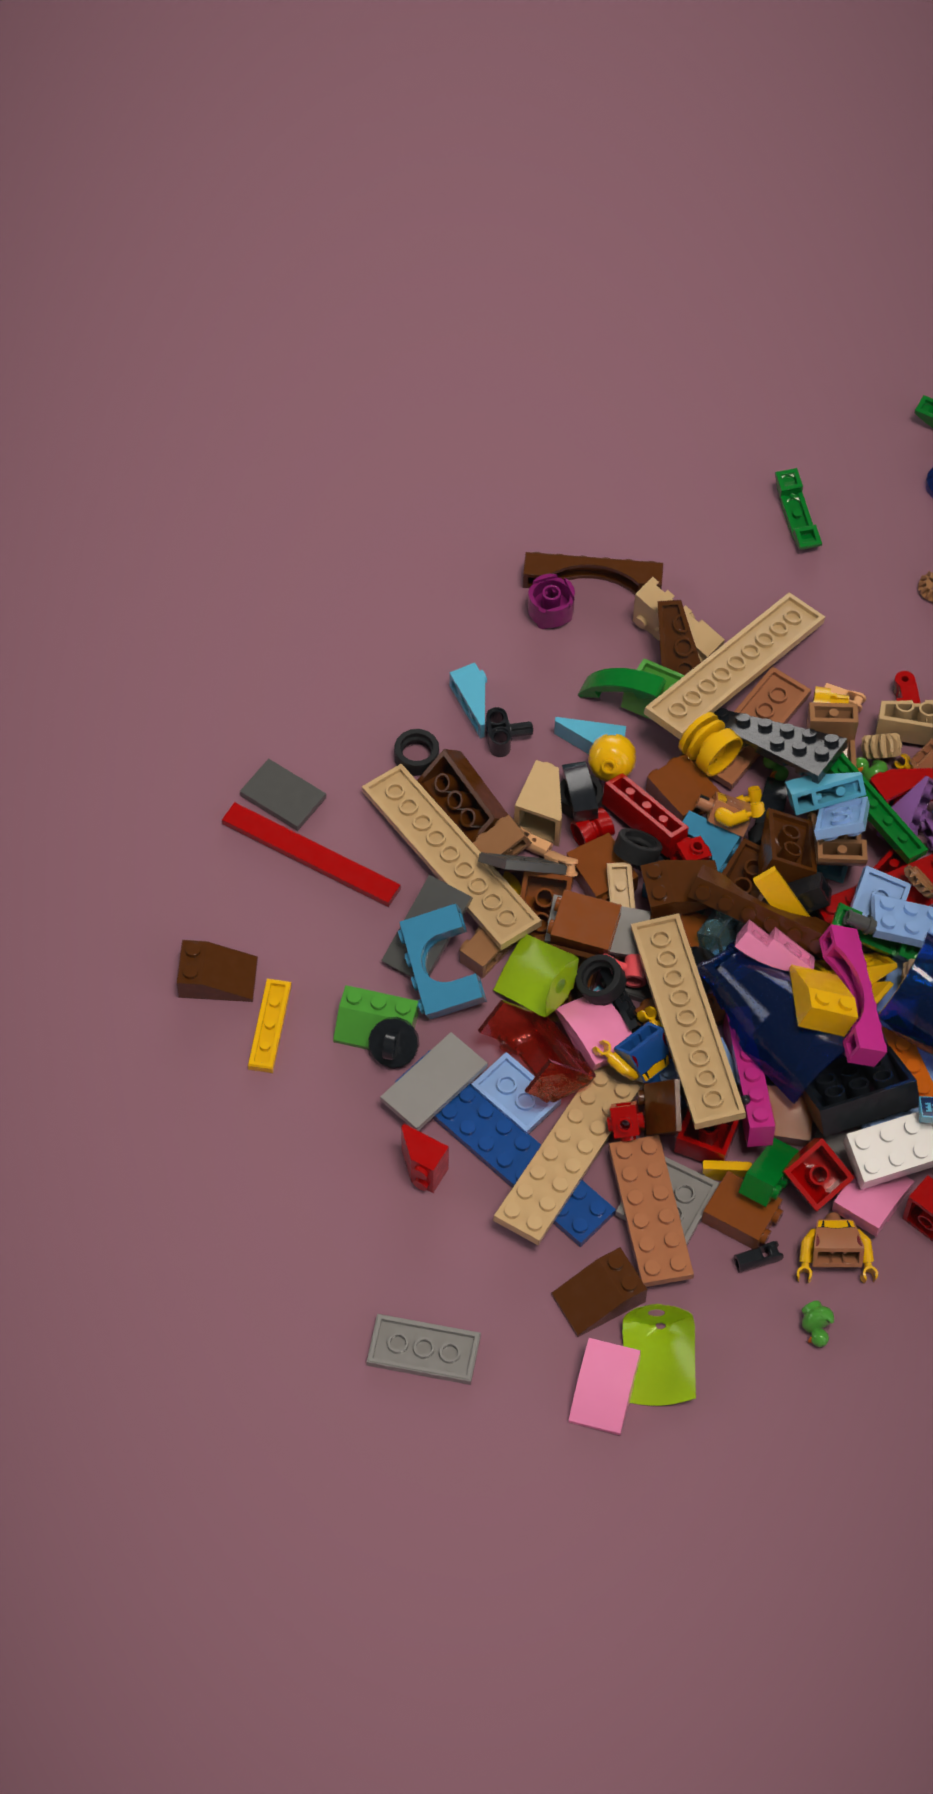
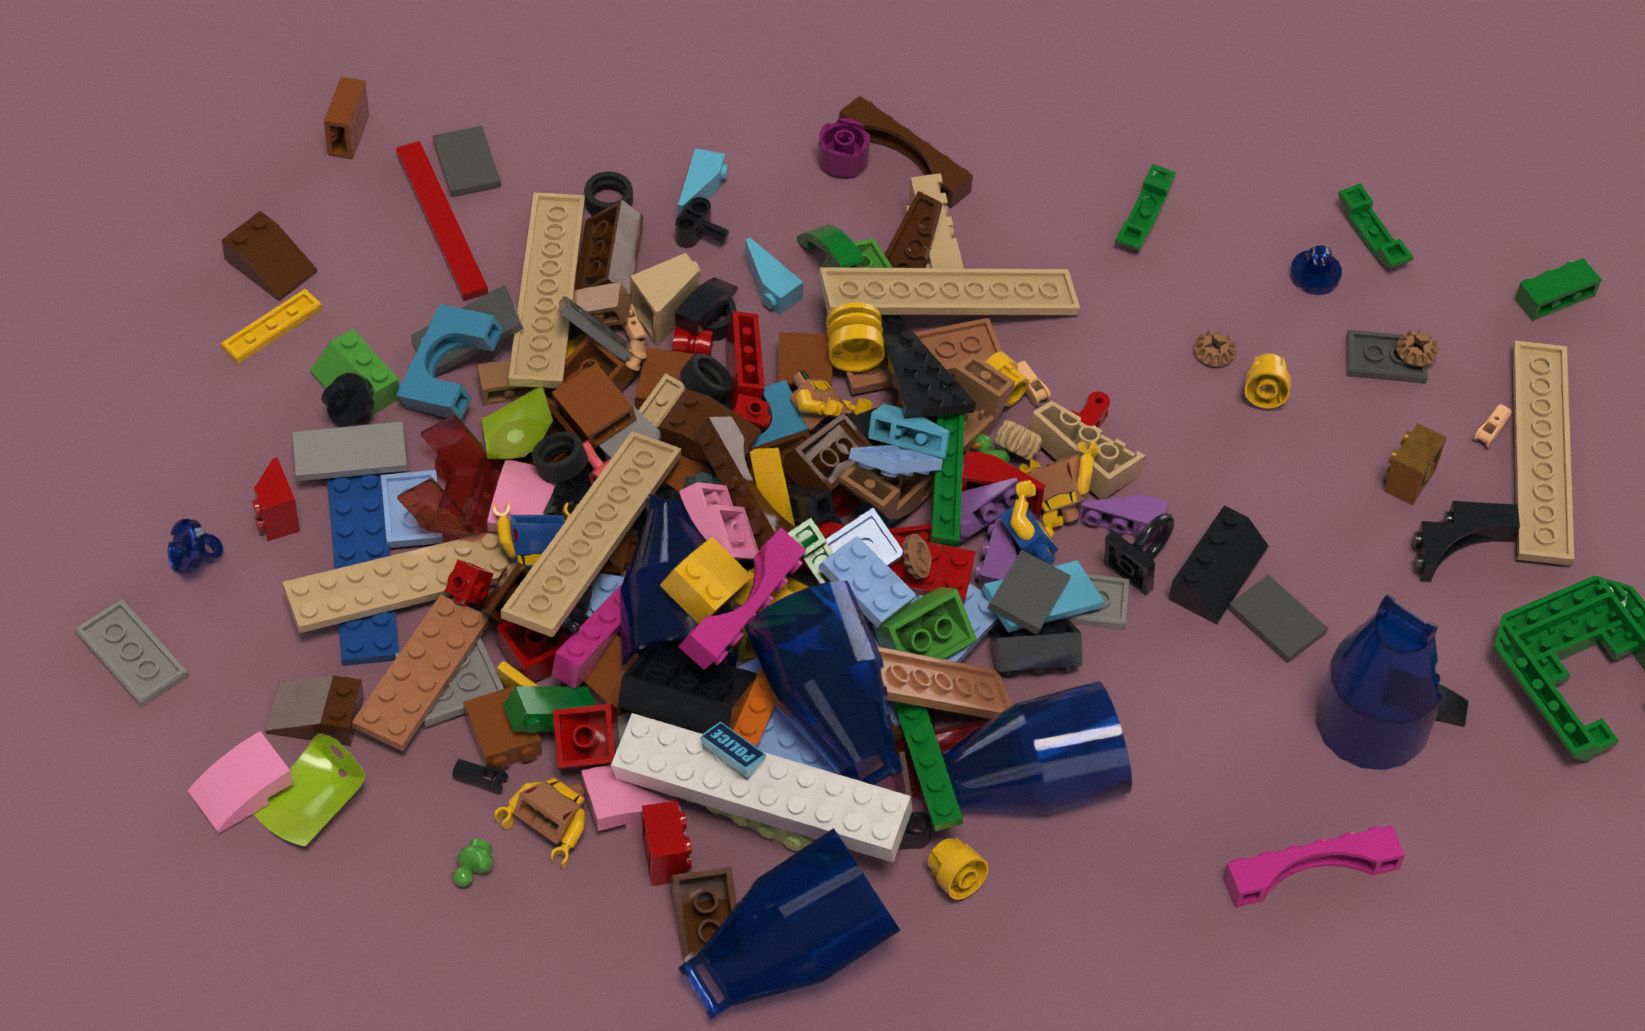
camera: 35 degrees right, 5 degrees down
(169, 820) = (346, 117): none -> dark orange brick
(392, 1239) = (189, 549): none -> clear blue tile
(611, 756) = (764, 296): yellow cylinder -> none
(860, 922) = (814, 545): dark grey pin -> none

